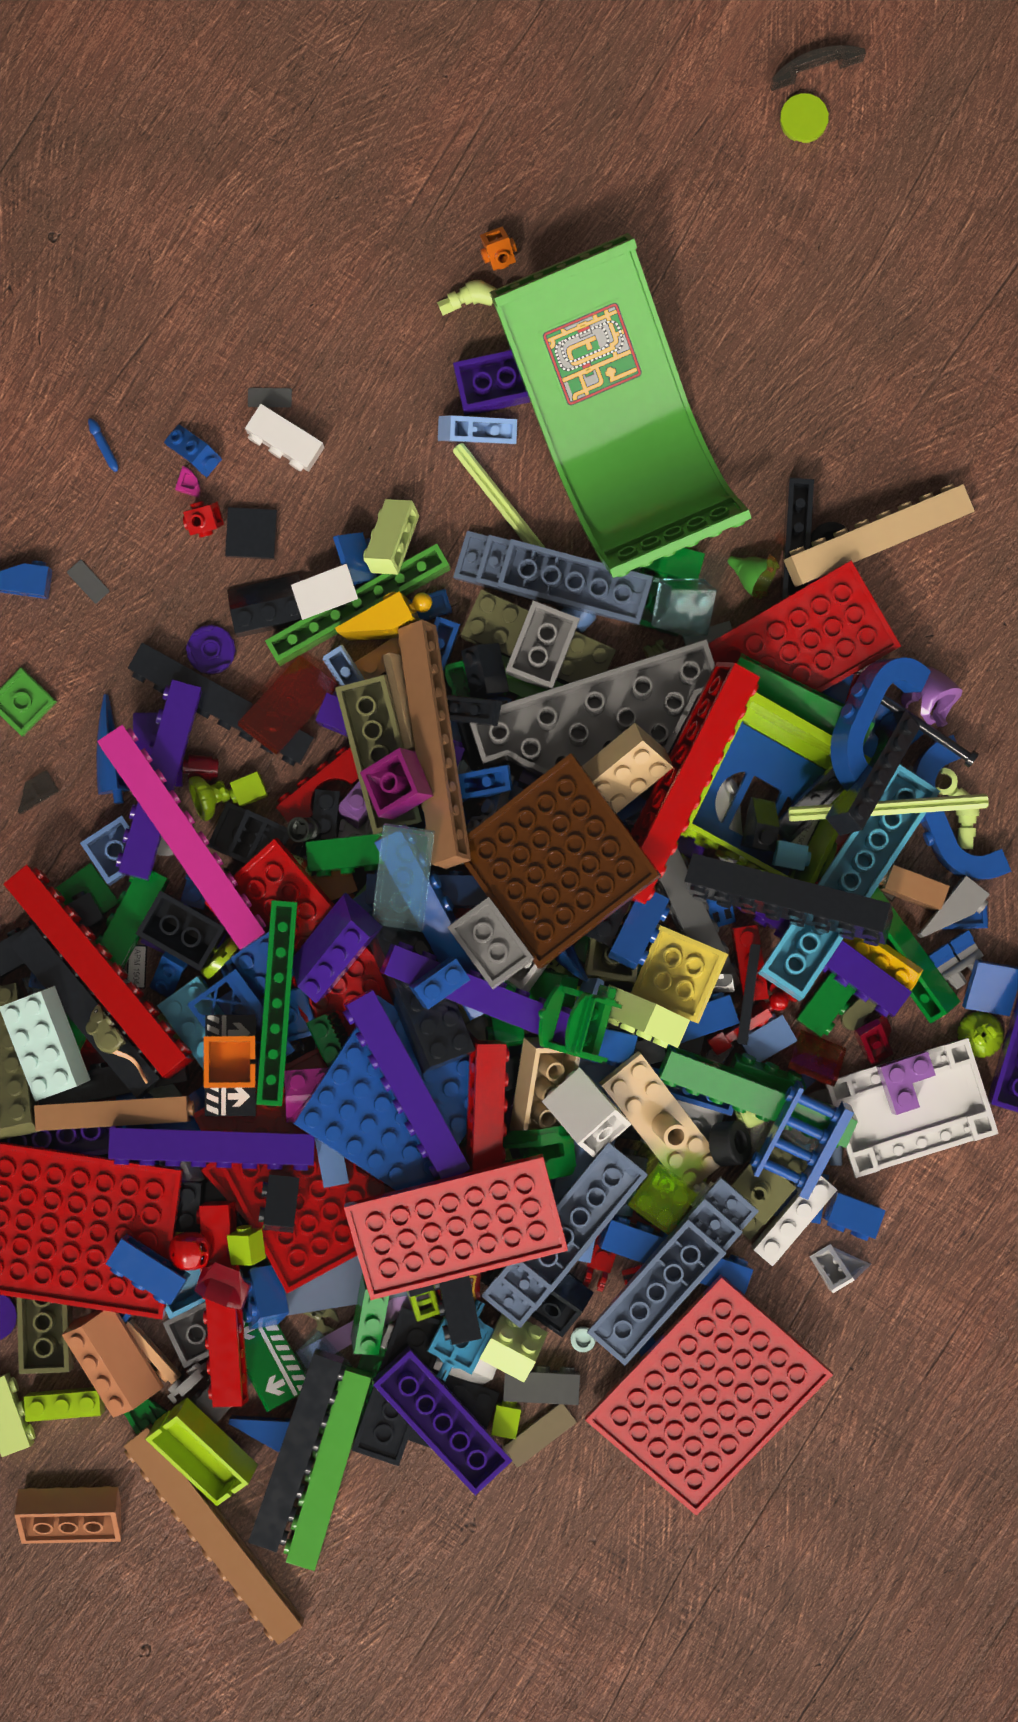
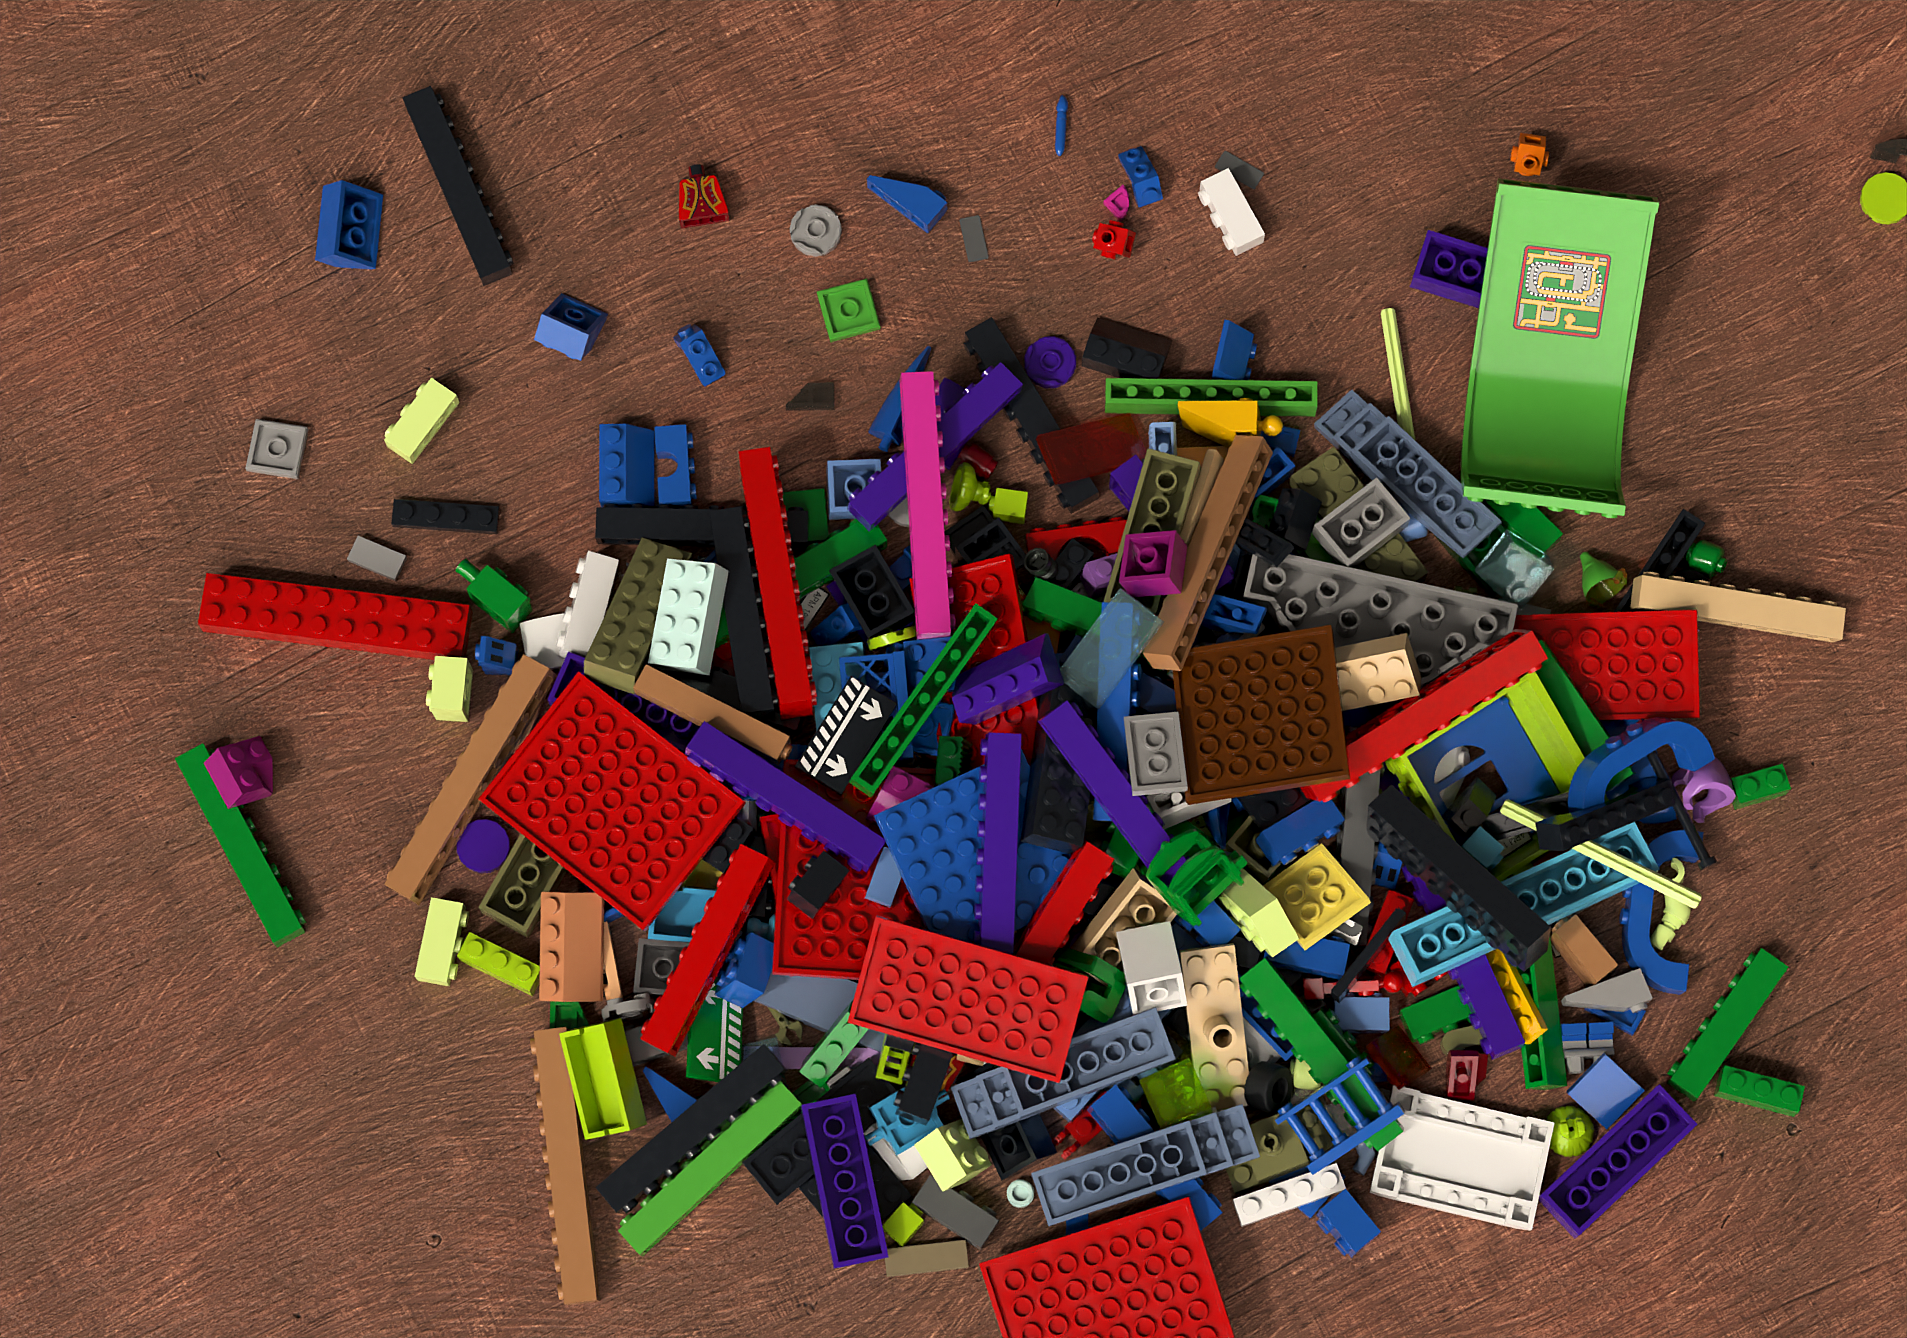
camera: 30 degrees right, 10 degrees down
(68, 1515) = (441, 1070): nougat slope -> none
(108, 1037) = (750, 642): olive animal -> none
(147, 1270) = (658, 873): blue brick -> none
(186, 1251) = (704, 877): red helmet -> none
(223, 1286) = (720, 927): dark red slope -> none
(229, 1061) = (848, 727): orange piece -> none
(246, 1246) = (762, 905): lime brick -> none
(251, 533) = (1150, 280): black tile -> none
(324, 591) = (1187, 364): white sticker -> none
(391, 536) = (1278, 352): yellowish green brick -> none
(439, 982) = (1087, 756): blue brick -> none
(473, 292) = (1484, 181): yellowish green piece -> none
(477, 429) = (1414, 304): light blue slope -> none
(829, 506) = (1706, 558): none -> green head
(837, 1267) = (1302, 1268): white slope -> none
(898, 1080) = (1467, 1118): medium lavender brick -> none
(976, 669) = (1760, 786): none -> green brick

